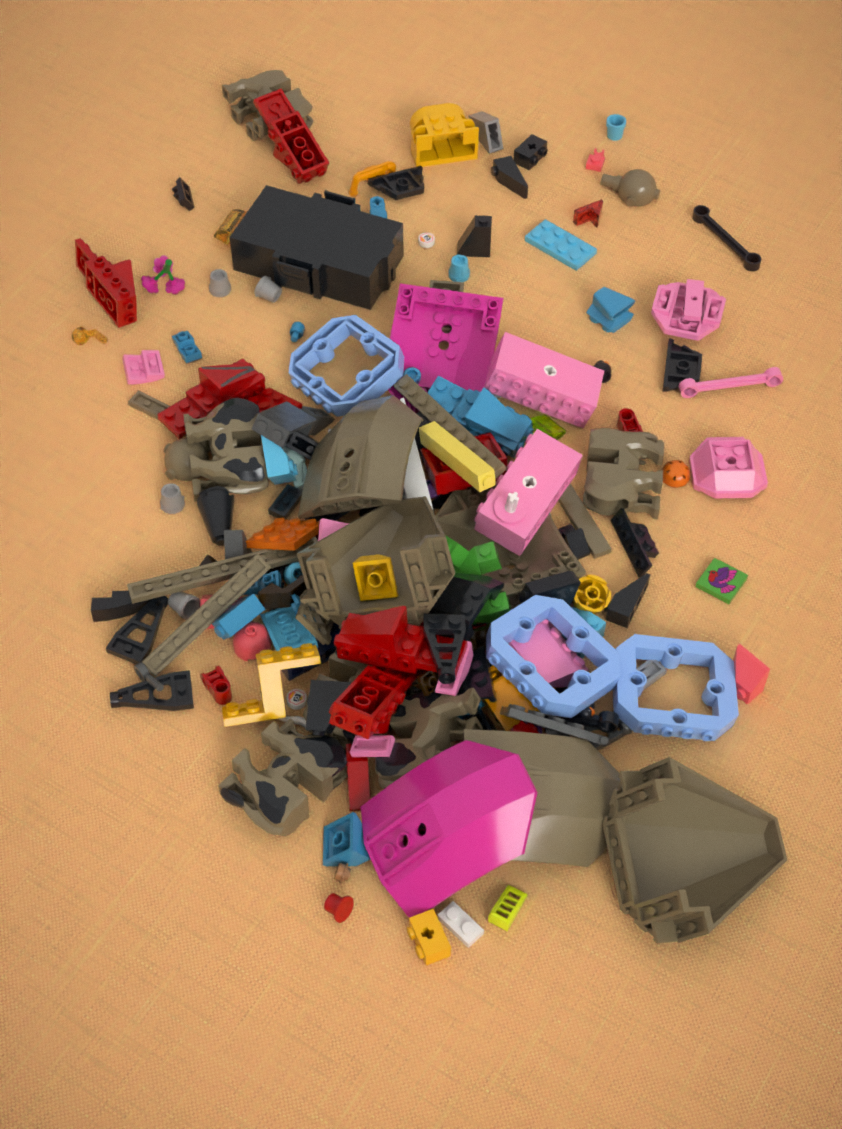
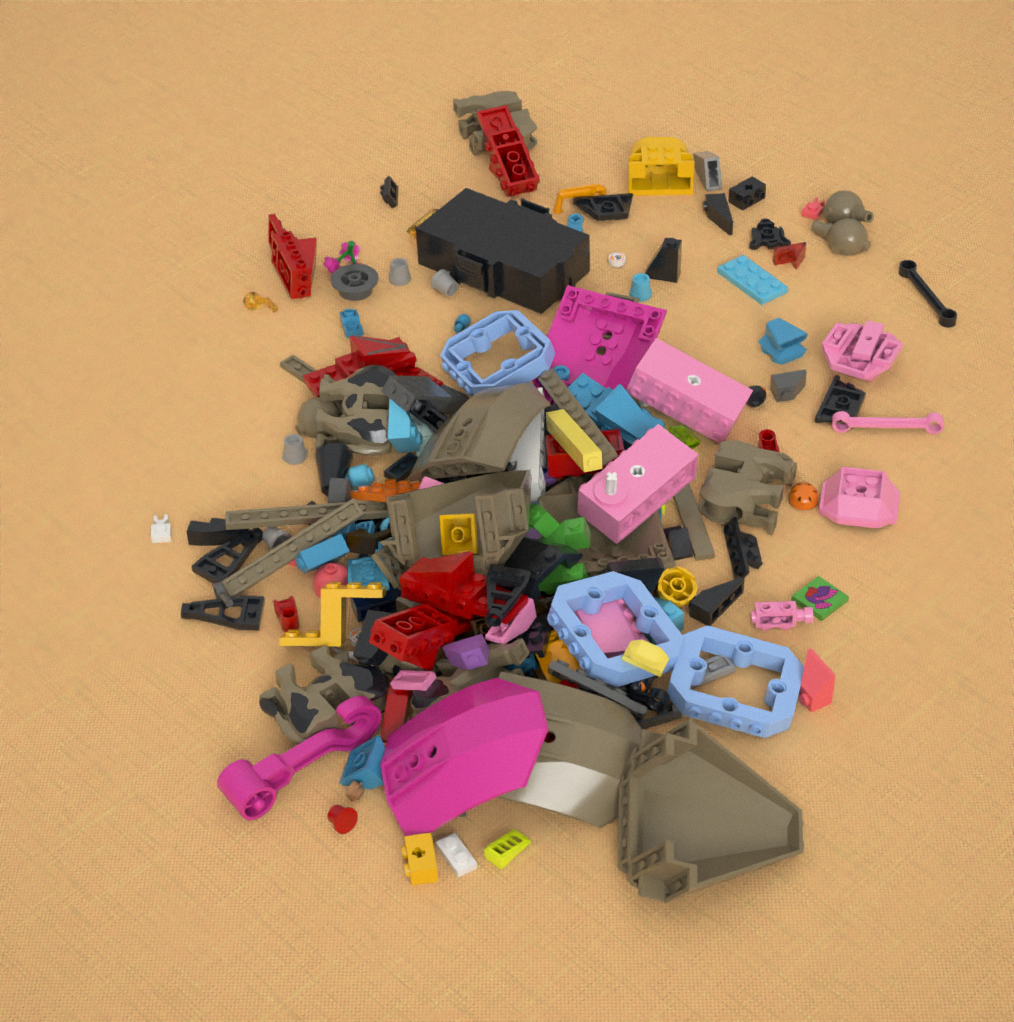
camera: 15 degrees right, 10 degrees down
(61, 610) = (161, 530): none -> white plate
(143, 367) = (304, 336): bright pink slope -> none
(178, 299) = (354, 281): none -> dark grey piece
(242, 891) = (254, 787): none -> dark pink piece
(247, 519) = (360, 476): none -> medium azure head
(423, 712) = (468, 653): none -> medium lavender slope
(562, 195) = (767, 235): none -> black tile
(594, 684) = (646, 656): none -> light yellow slope
(615, 126) = (842, 179): medium azure piece -> none
(626, 356) = (787, 385): none -> dark grey slope
(629, 156) = (846, 205): none -> dark tan piece
(688, 605) = (780, 615): none -> bright pink brick

